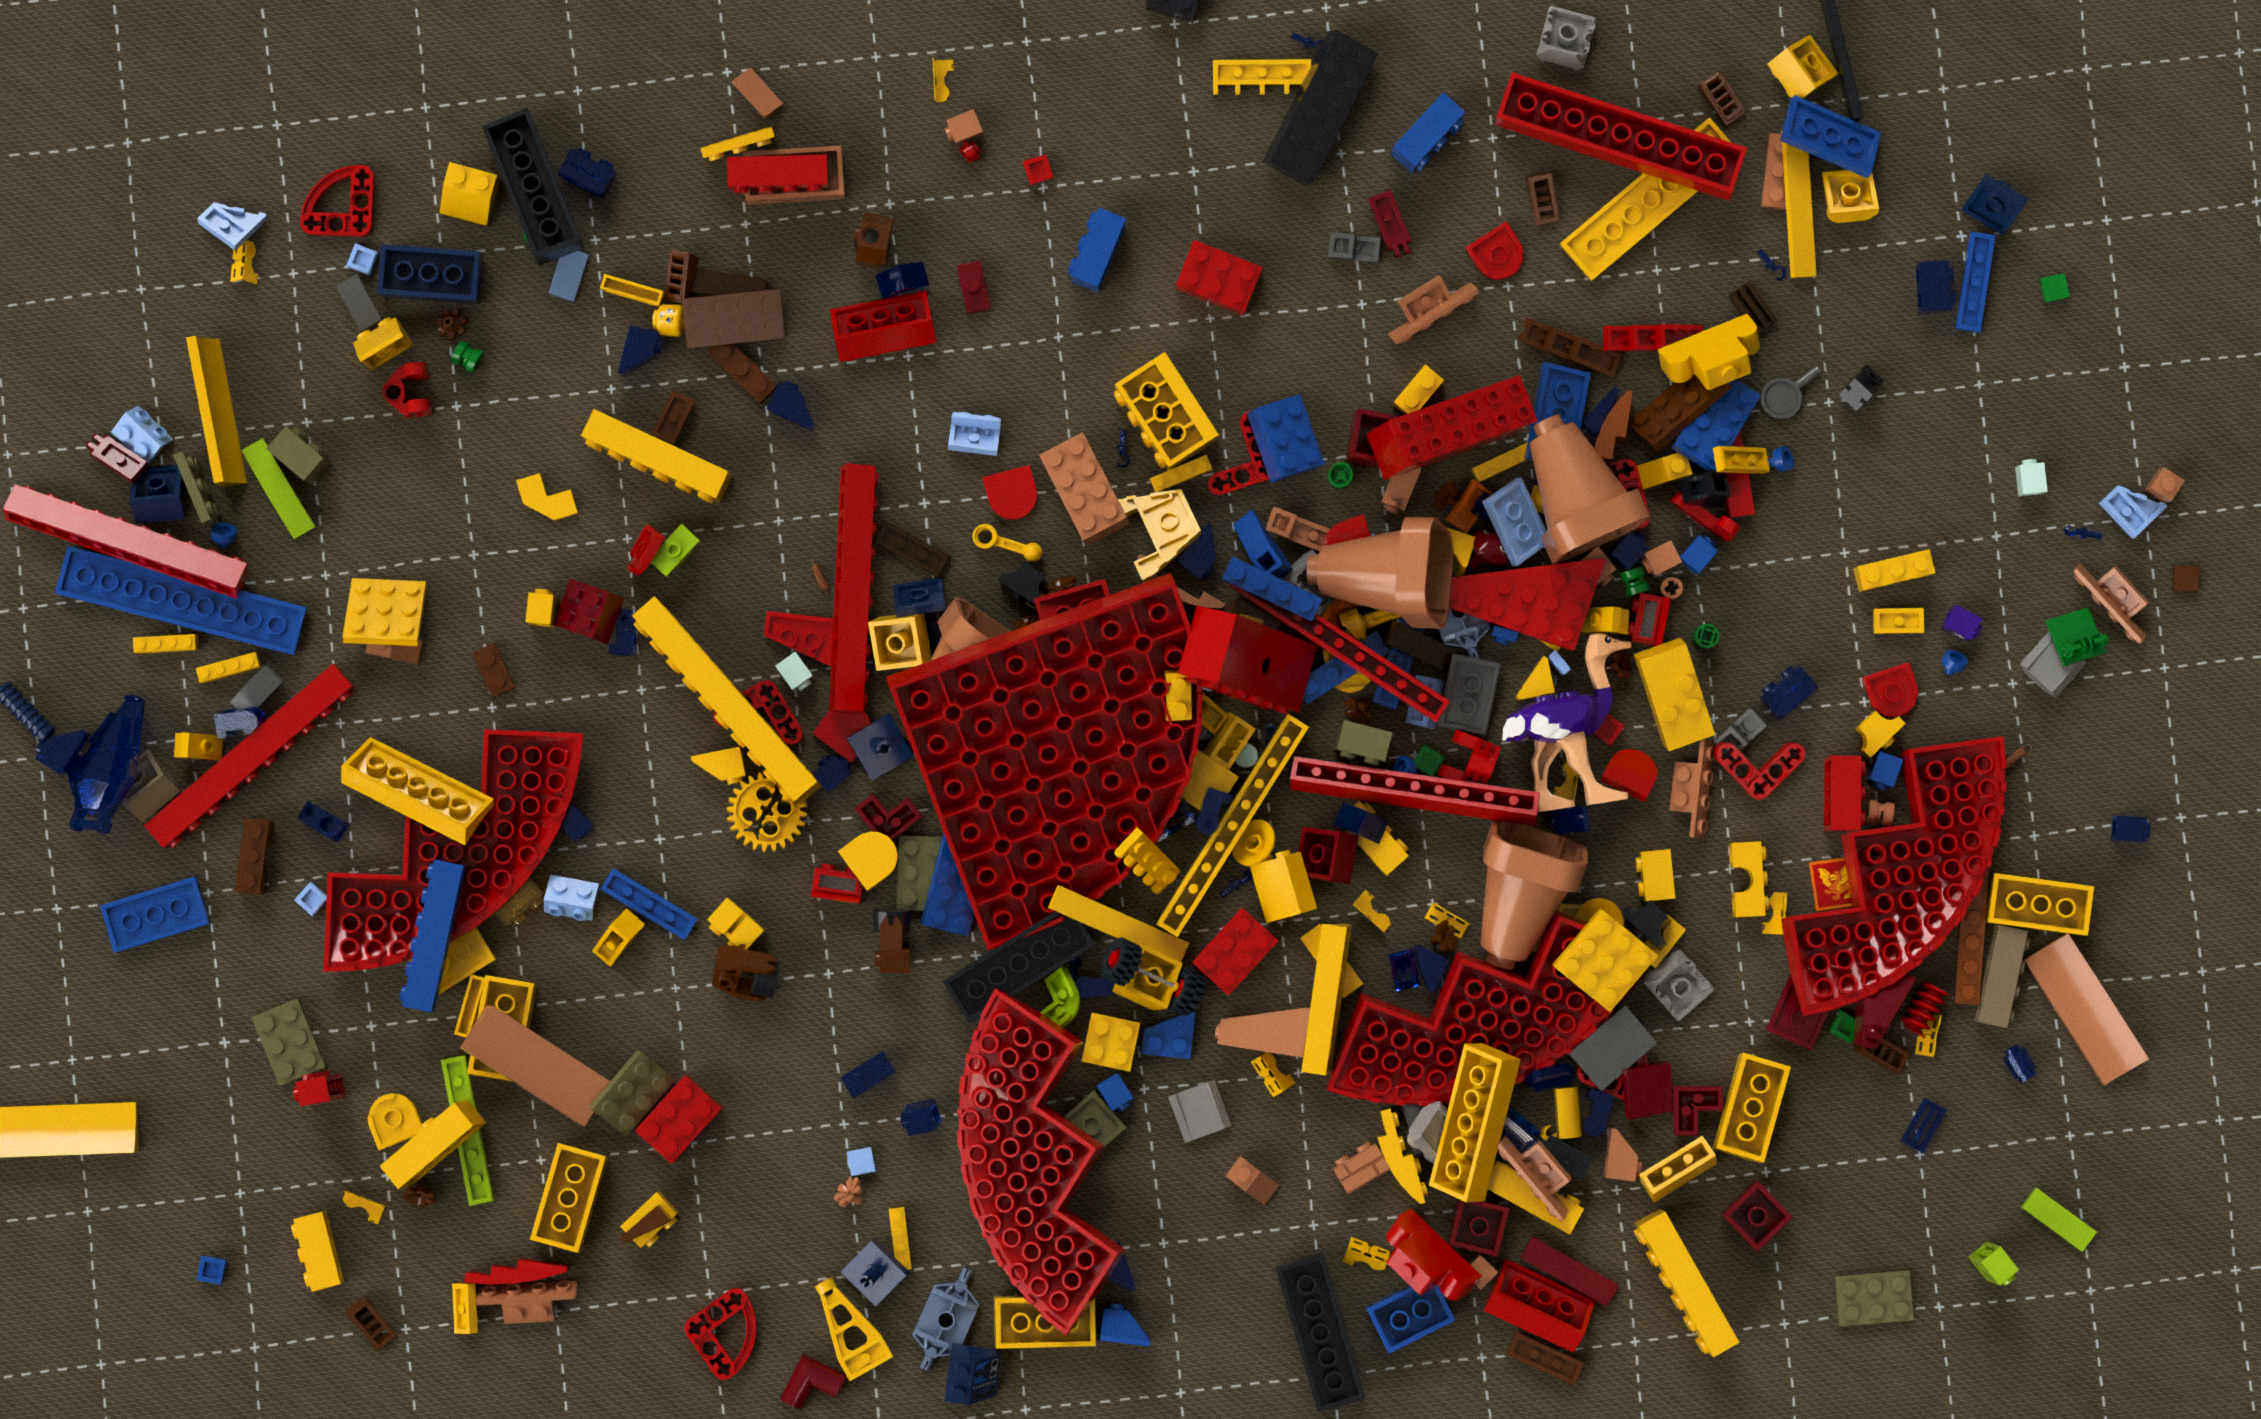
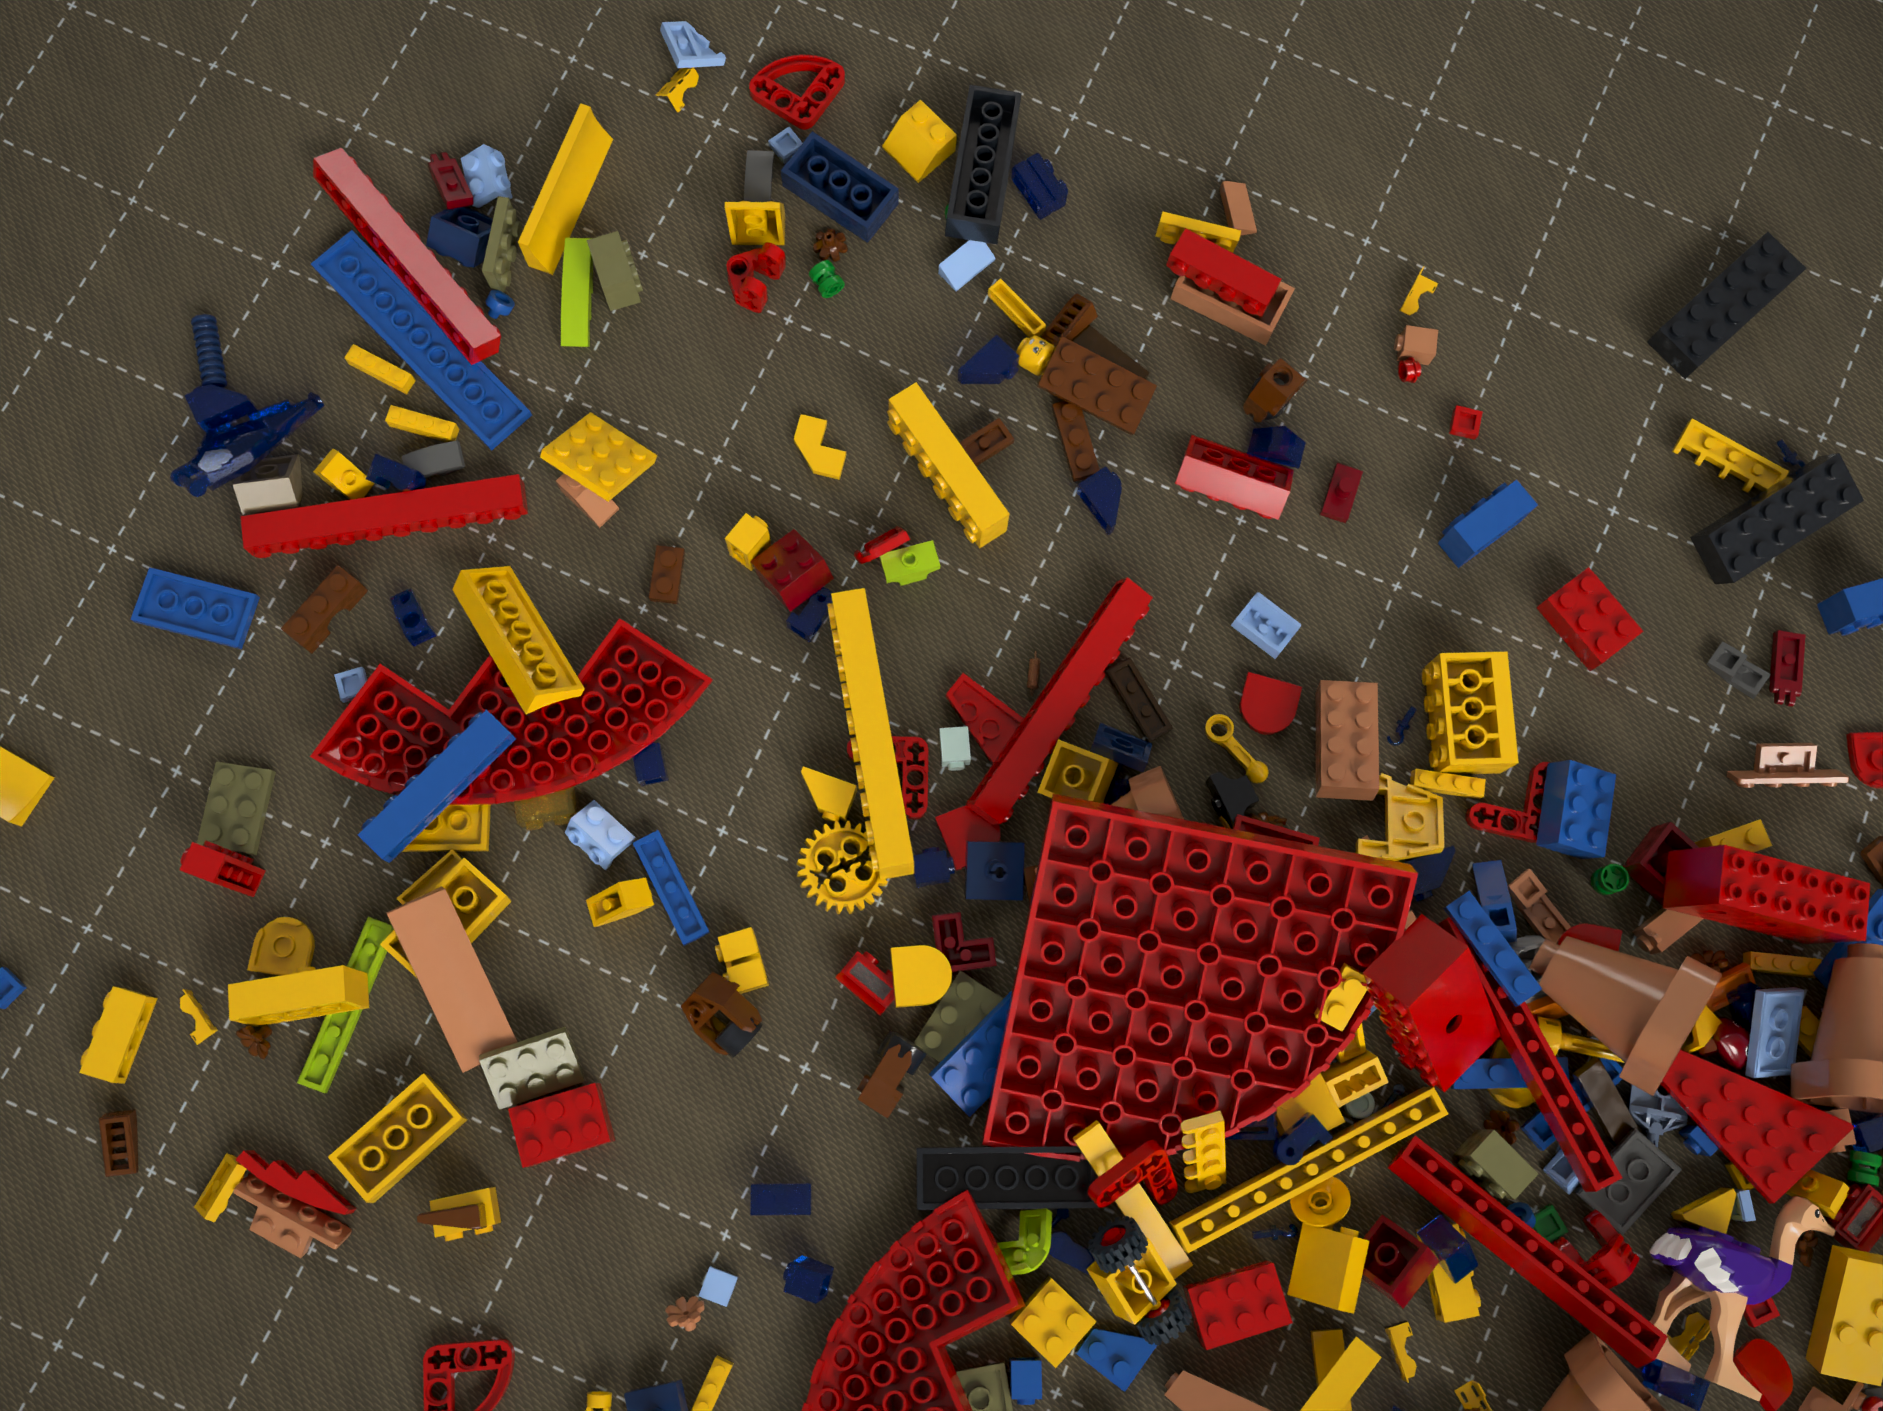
camera: 30 degrees right, 10 degrees down
(1113, 889) = (1145, 1163): none -> red beam

